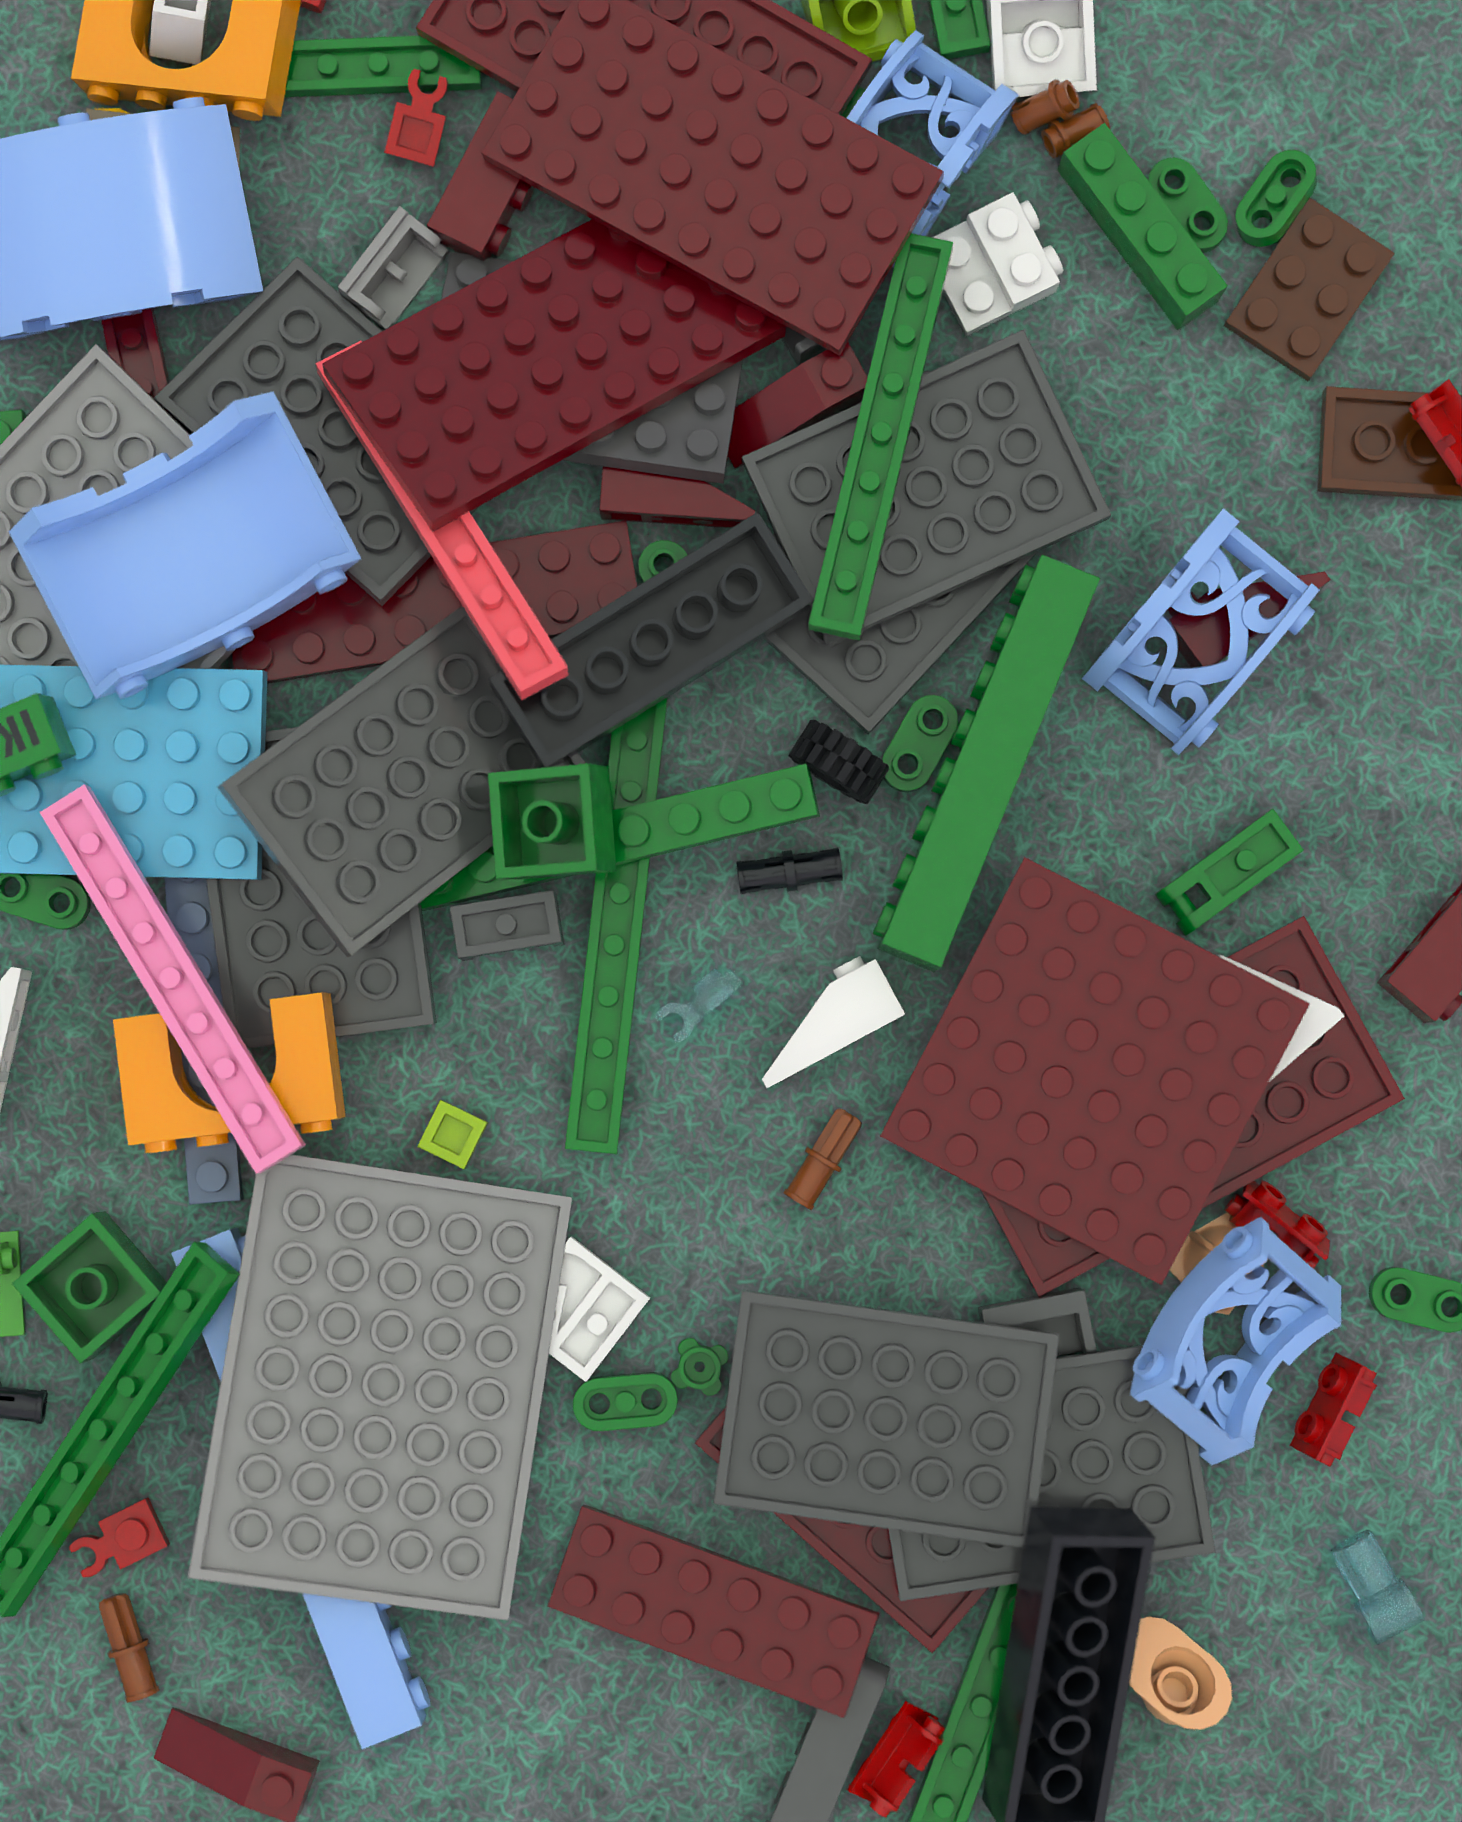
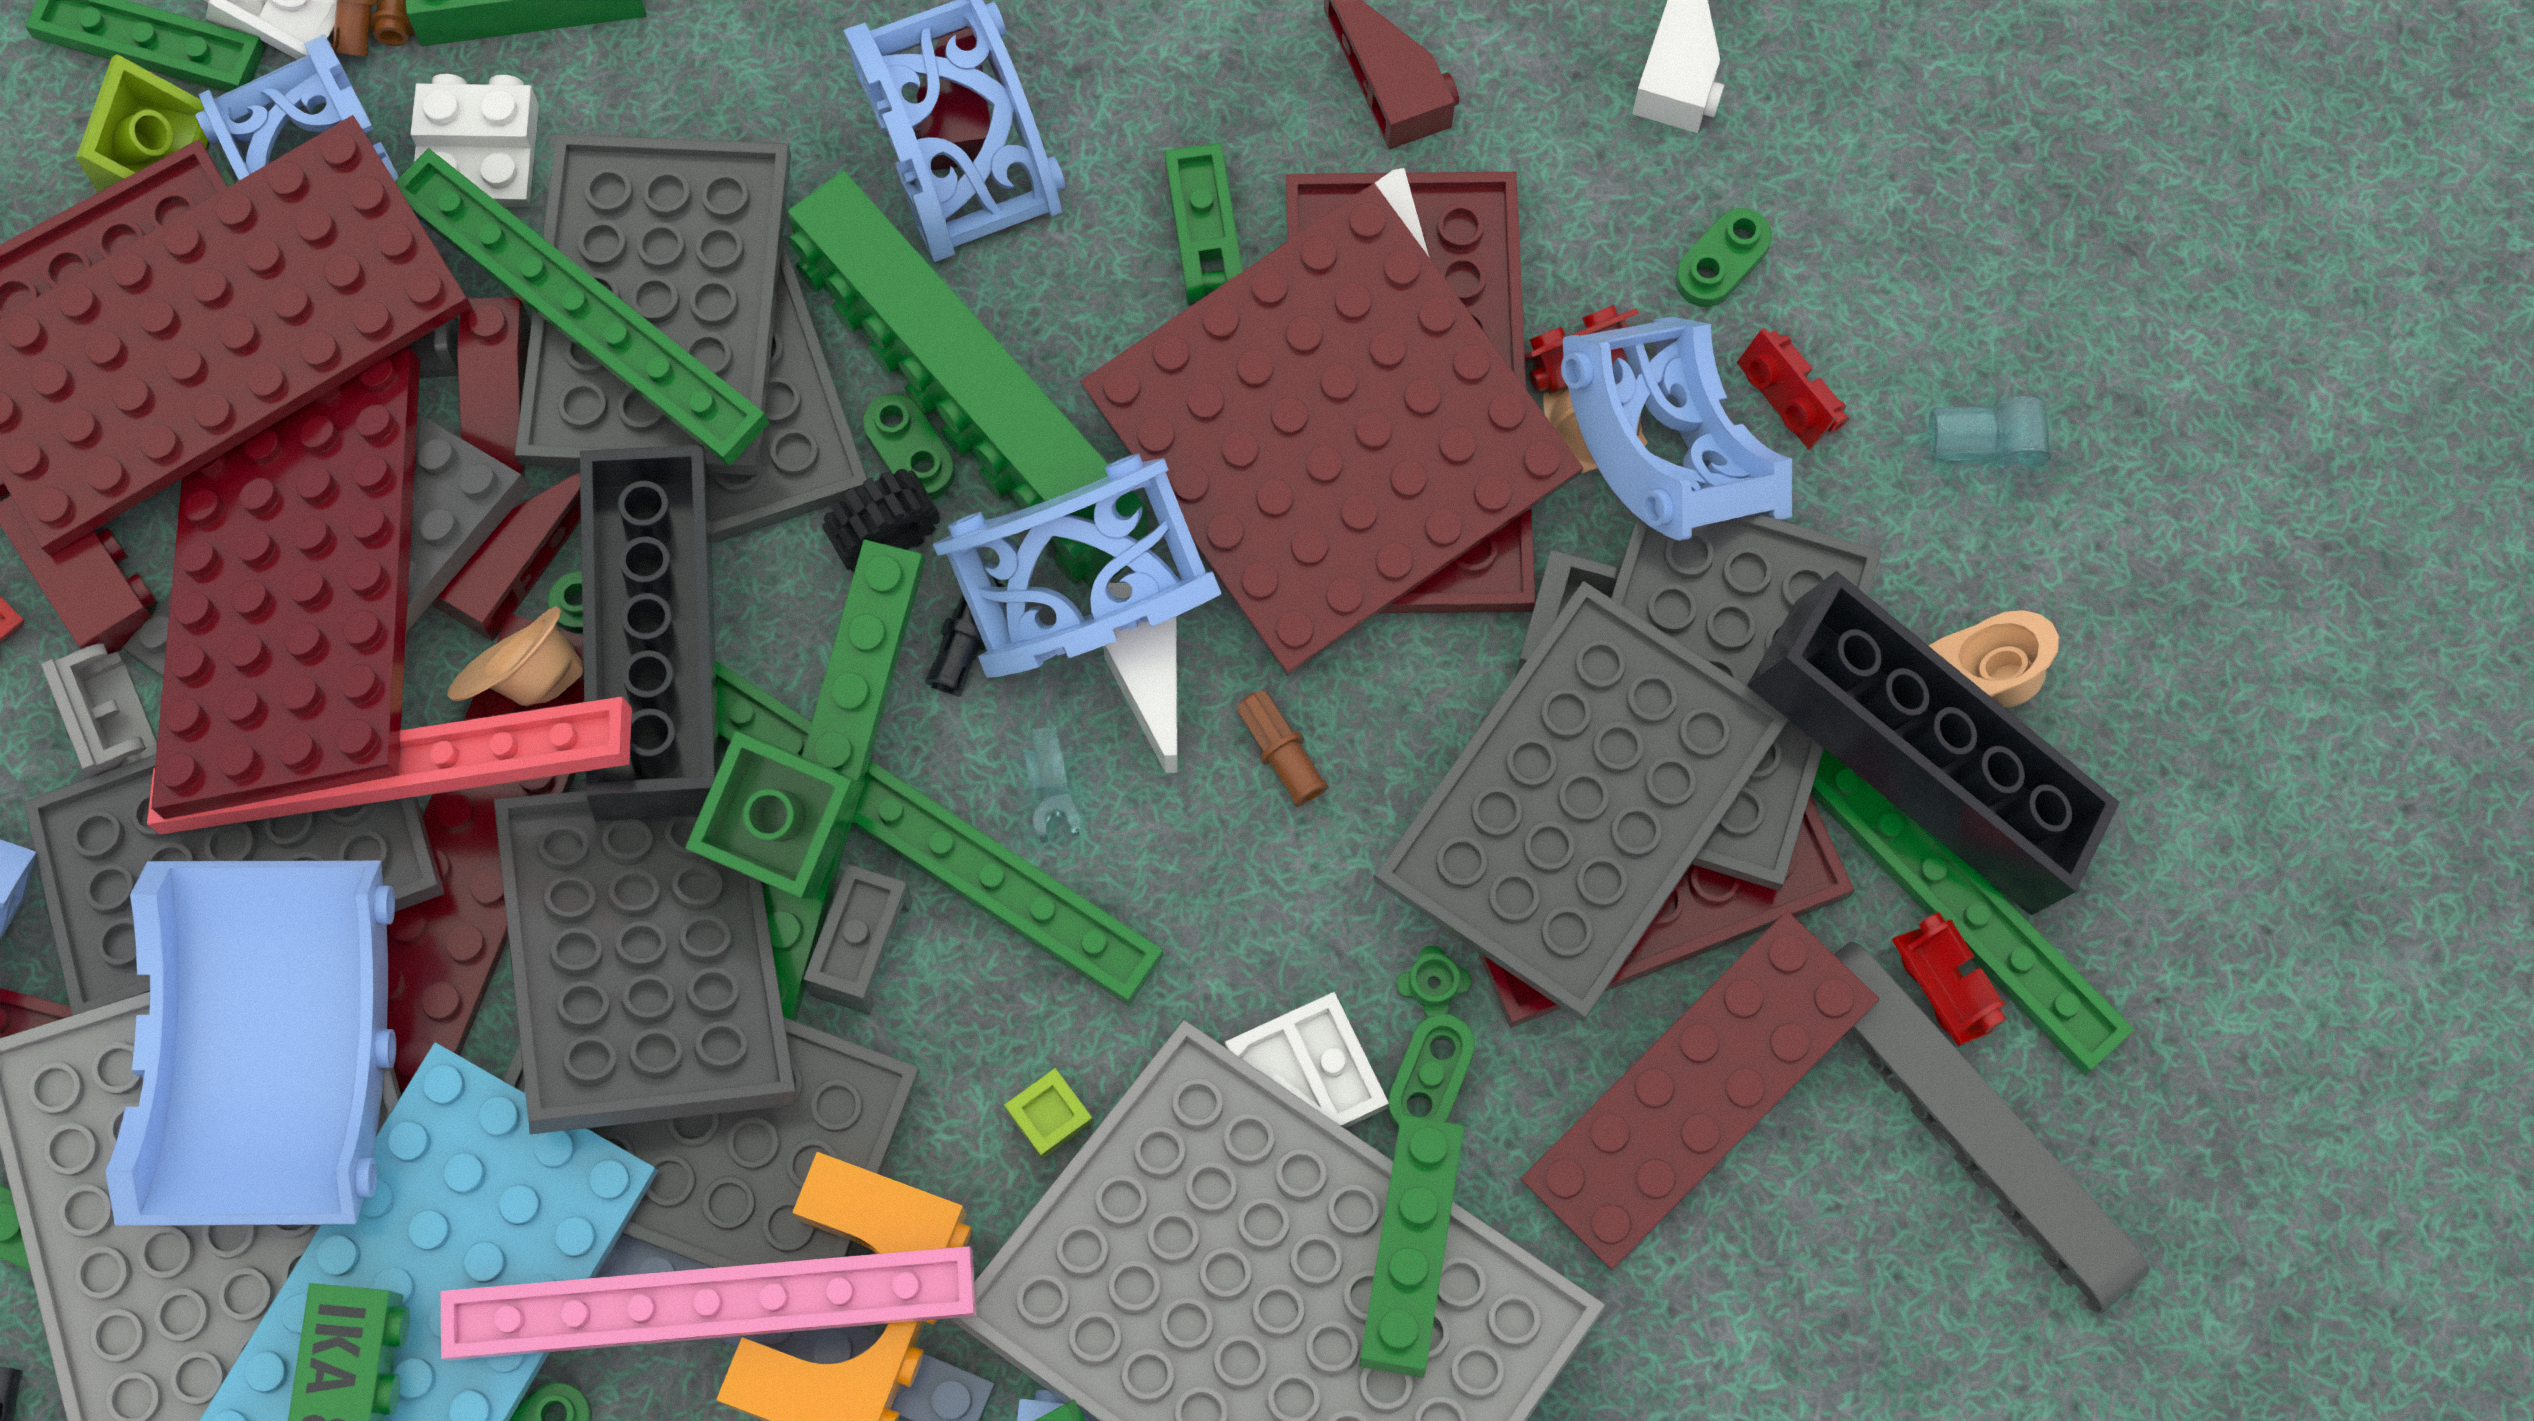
camera: 65 degrees left, 15 degrees down
(479, 1458) = (1412, 1246): none -> green plate
(579, 557) = (525, 666): none -> light nougat piece
(813, 903) = (1016, 636): none -> light blue fence

